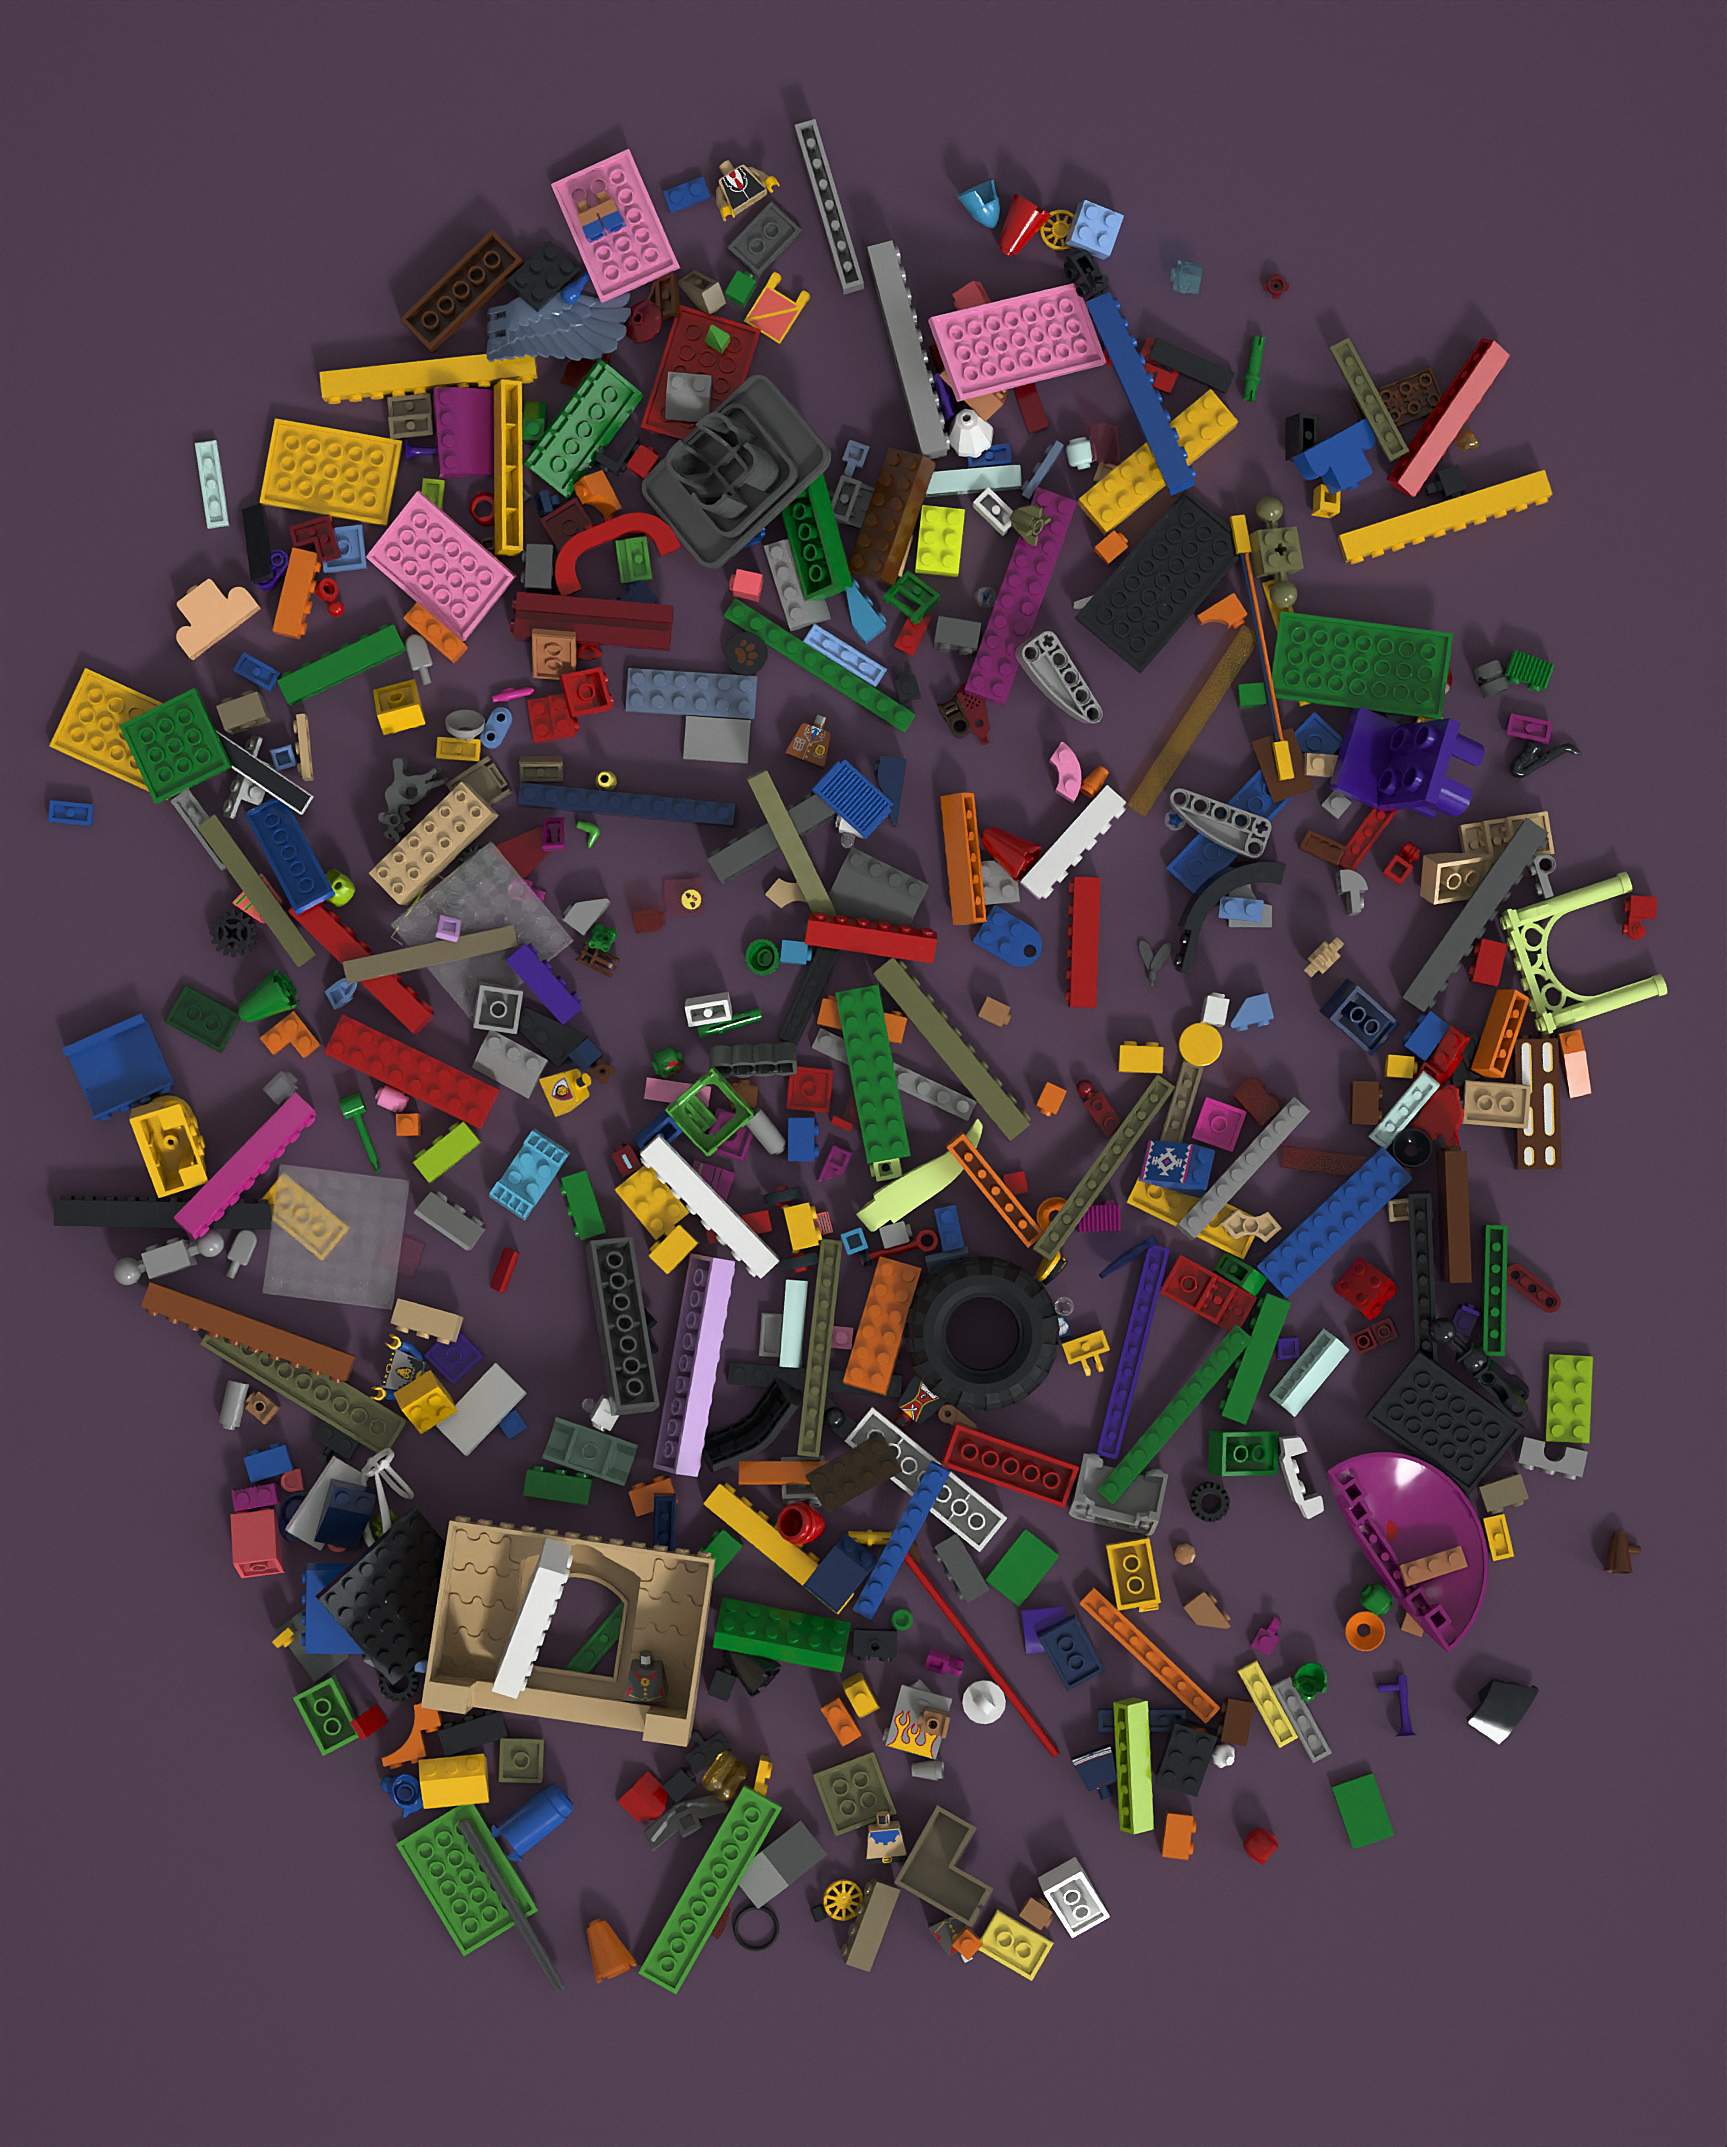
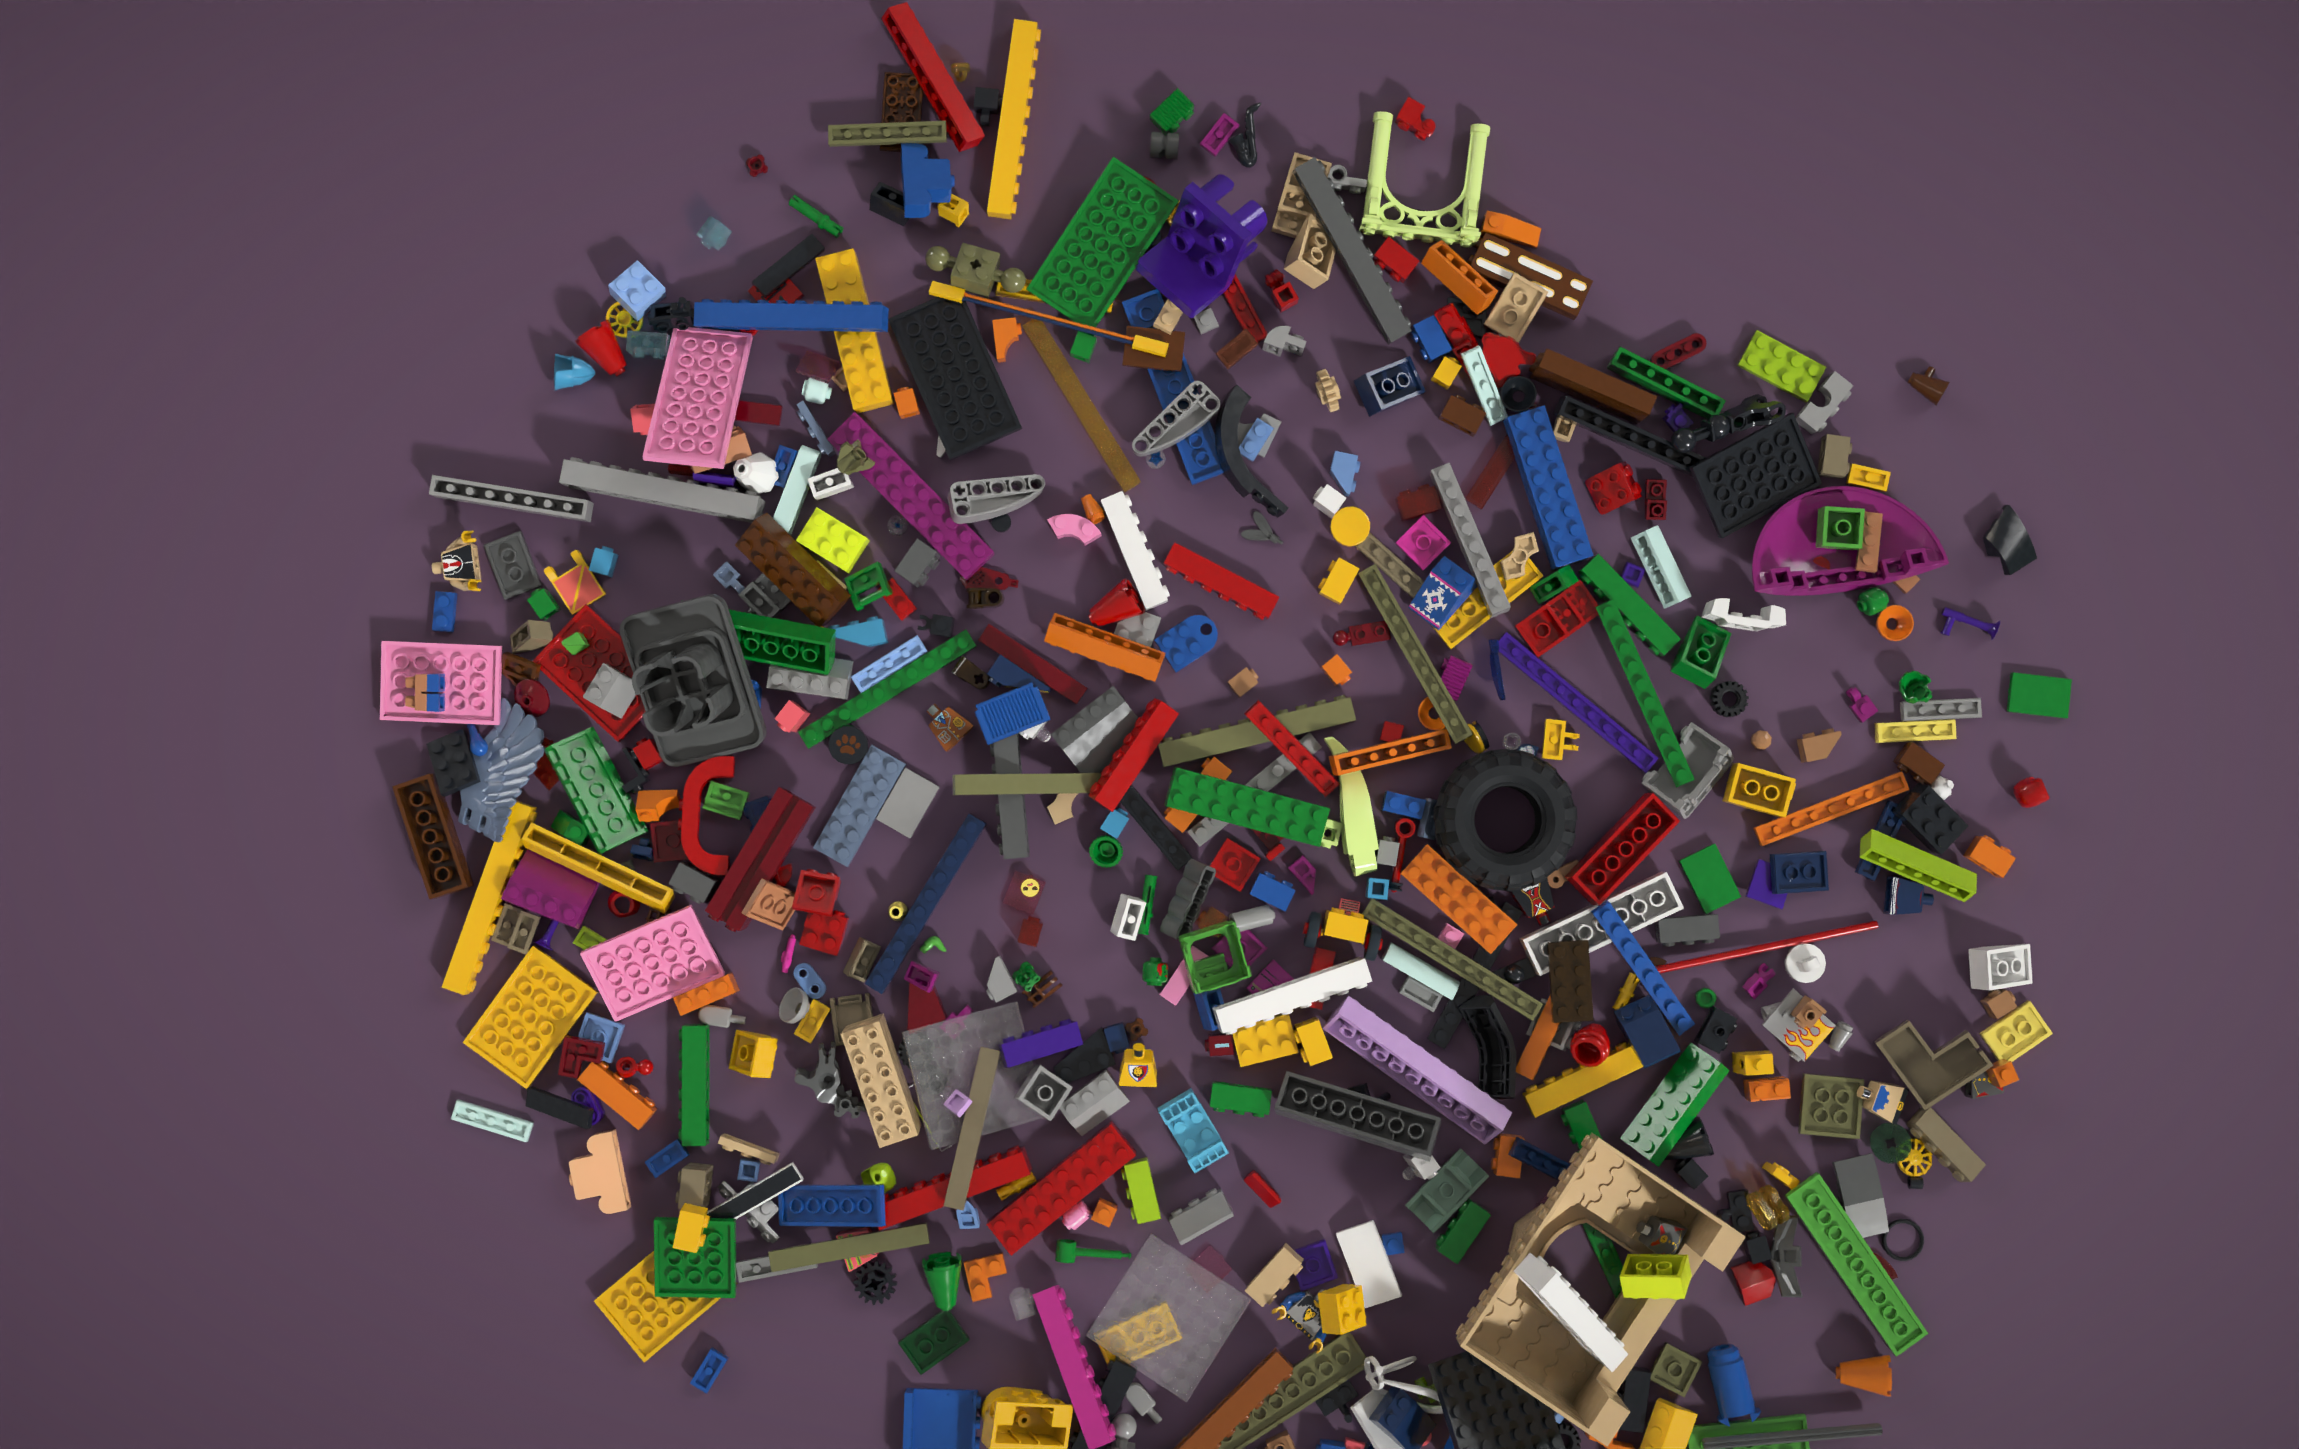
camera: 65 degrees left, 0 degrees up
(204, 727) = (690, 1228): none -> yellow brick
(393, 1026) = (1015, 1186): none -> yellow pin
(605, 1689) = (1655, 1276): none -> neon yellow brick
(811, 326) = (603, 561): none -> dark azure brick
(837, 1878) = (1894, 1154): none -> clear green plate
(874, 738) = (969, 671): none -> dark brown piece
(912, 796) = (1032, 664): none -> dark red tile
(952, 1091) = (1292, 748): none -> red tile
(1037, 699) = (1001, 523): none -> black tile
(1046, 266) = (648, 344): none -> clear light blue brick
(1432, 1530) = (1840, 528): none -> bright green brick

